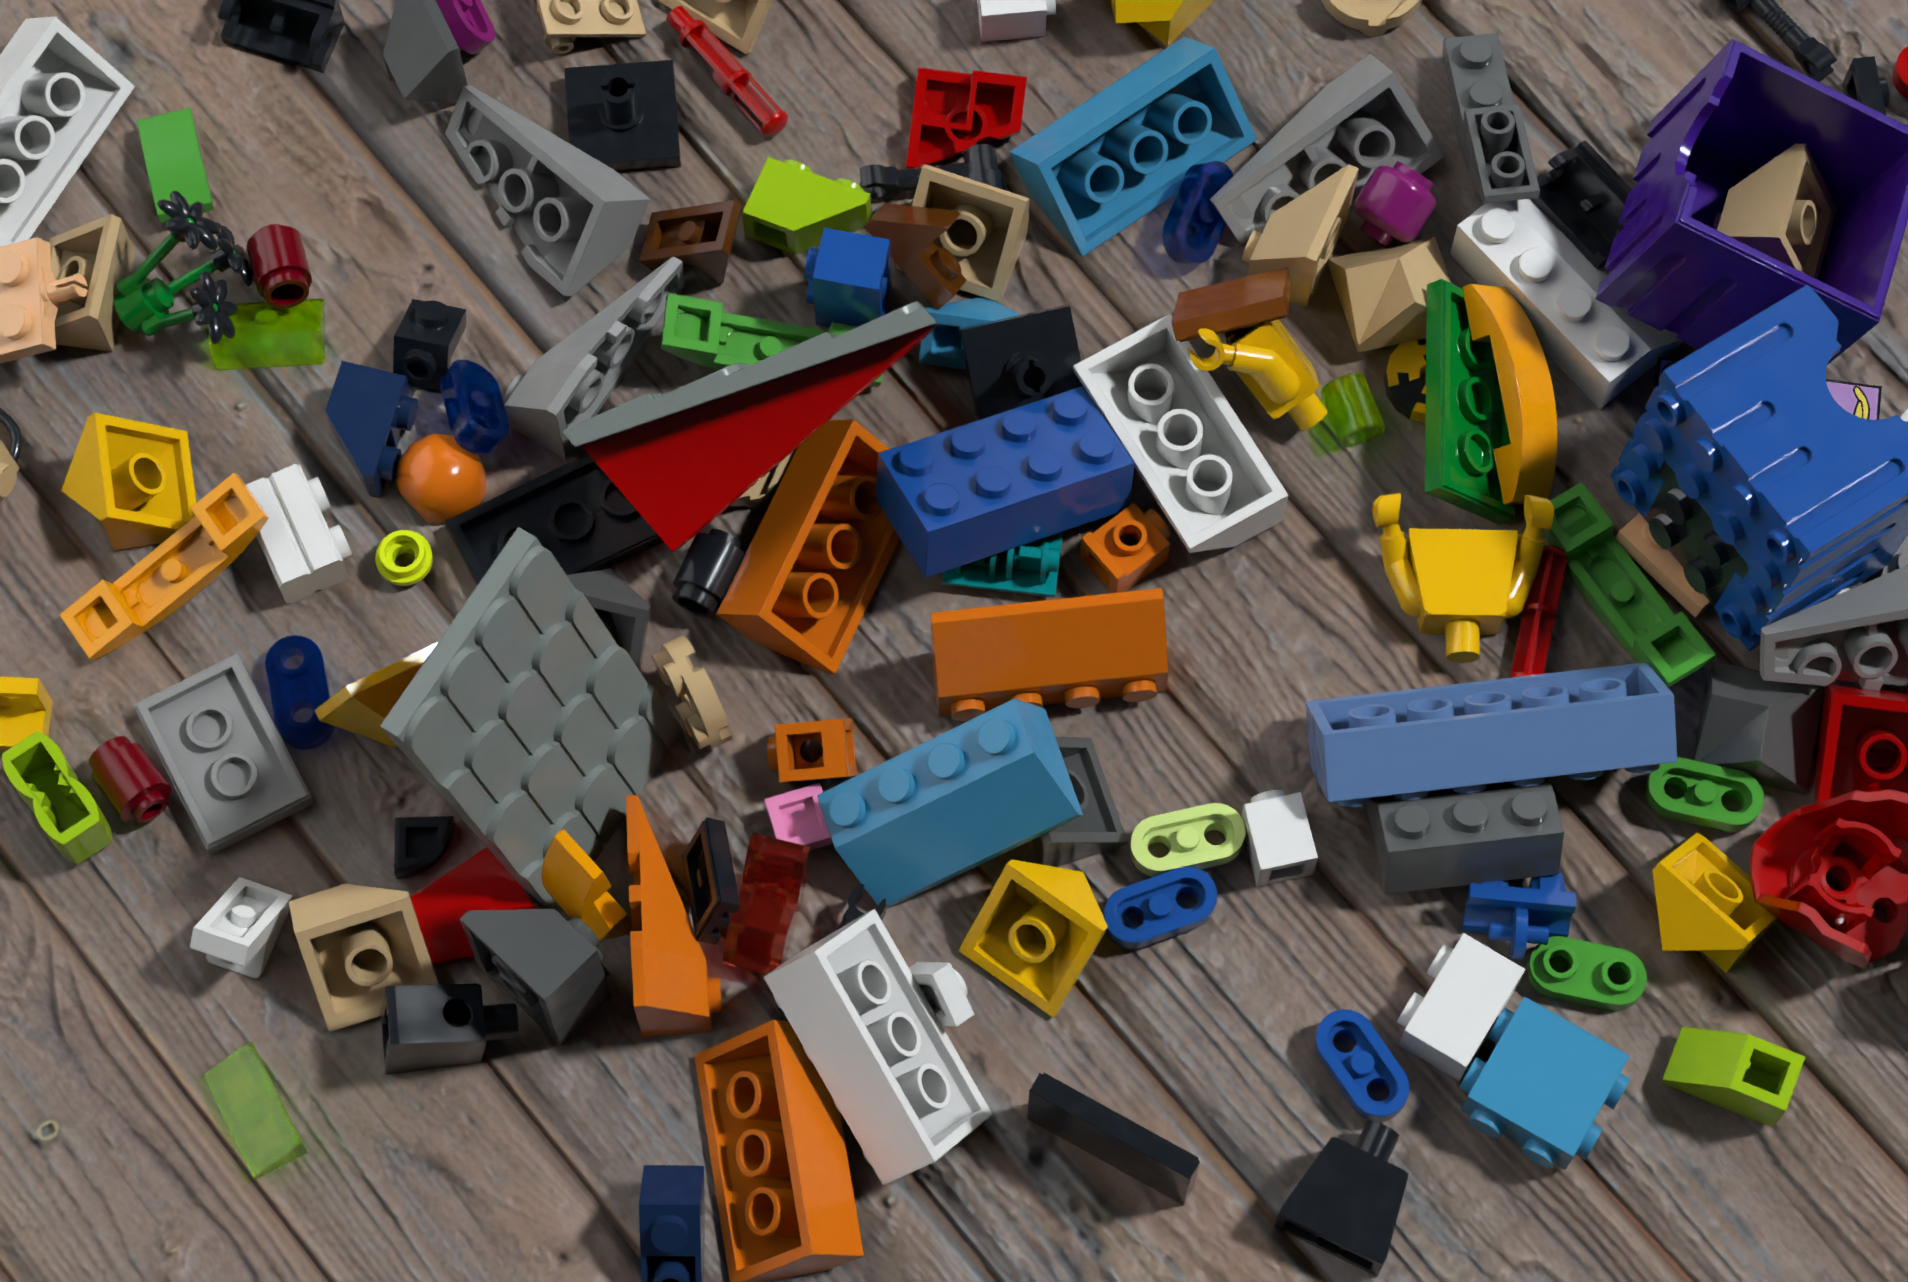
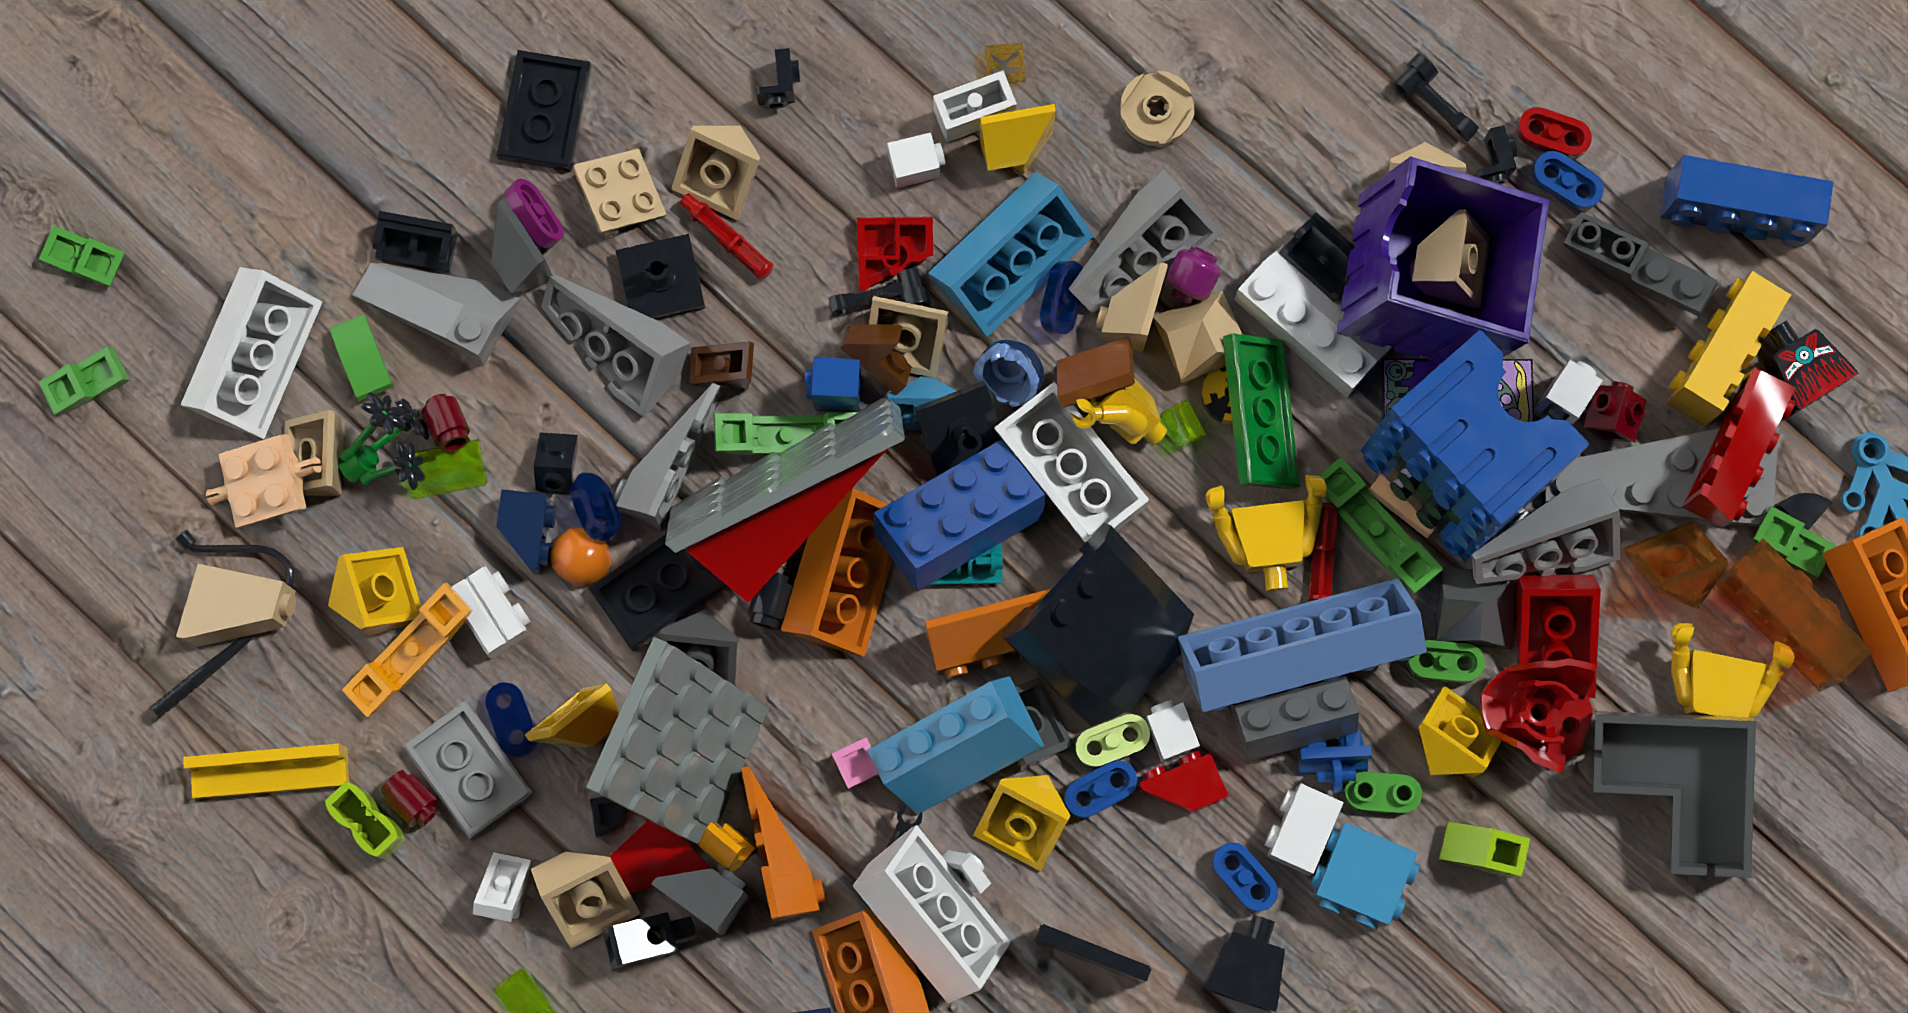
camera: 10 degrees left, 10 degrees up
(311, 119) = (448, 308): none -> light grey wedge
(396, 544) = (559, 606): neon yellow plate -> none
(701, 708) = (773, 691): tan plate -> none
(710, 880) = (805, 817): black tile -> none
(769, 904) = (844, 828): clear red brick -> none
(787, 750) = (851, 728): orange brick -> none
(795, 205) = (793, 332): lime slope -> none
(1108, 297) = (1010, 372): none -> medium blue hair
(1121, 565) = (1041, 557): orange brick -> none
(1193, 670) = (1102, 629): none -> black wedge
(1291, 919) = (1188, 786): none -> red slope
(1488, 121) = (1249, 207): dark grey slope -> none
(1525, 388) = (1296, 398): light orange slope -> none

